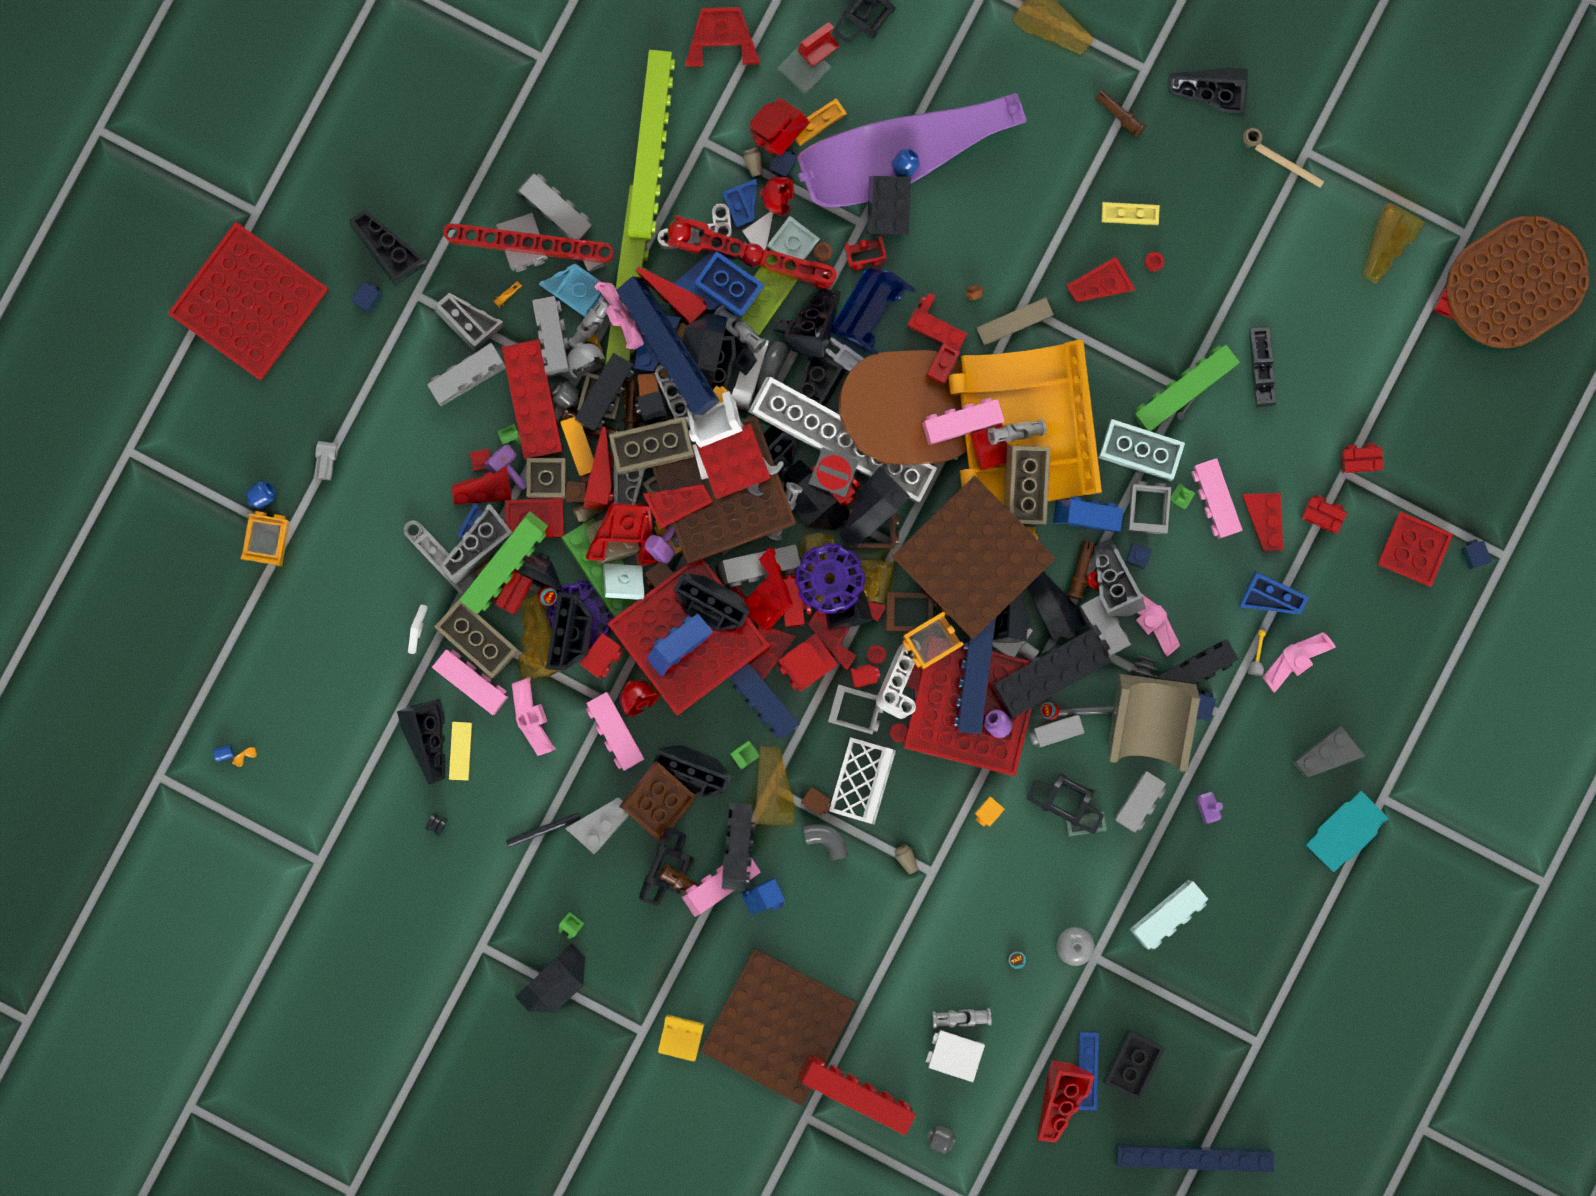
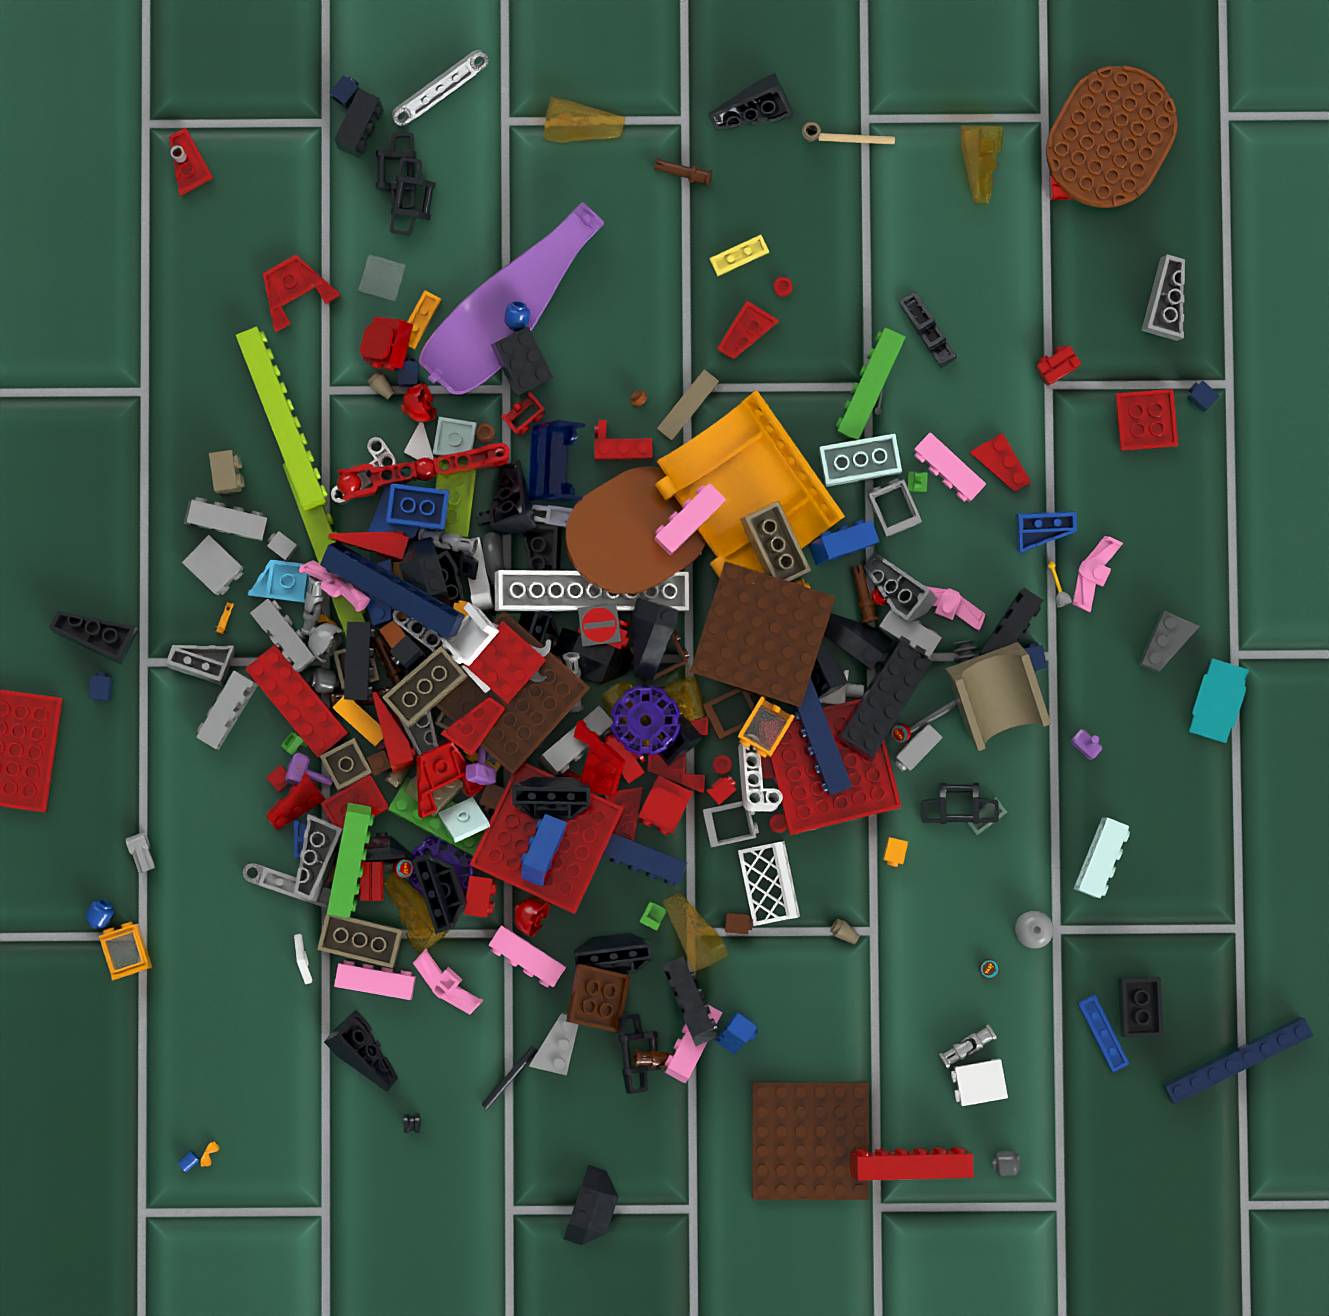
camera: 25 degrees left, 0 degrees up
(460, 751) = (399, 1046): light yellow tile -> none
(521, 237) = (210, 564): red beam -> none
(571, 925) = (579, 1148): bright green tile -> none
(576, 166) = (226, 472): none -> dark tan brick
(680, 1037) = (729, 1196): yellow bracket -> none
(741, 203) = (390, 427): blue wing -> none
(818, 45) = (384, 251): red panel -> none
(828, 837) = (765, 949): dark grey cylinder -> none
(943, 364) = (644, 477): red plate -> none
(988, 454) = (725, 528): red tile -> none
(998, 723) = (862, 769): medium lavender head -> none
(1017, 431) = (741, 502): light grey piece -> none
(1063, 1093) = (1093, 1067): red wedge -> none
(1138, 556) = (906, 555): dark blue brick -> none
(1140, 802) = (1024, 771): light grey brick -> none
(1323, 514) = (1050, 431): red brick -> none
(1486, 456) = (1165, 306): none -> light grey wedge

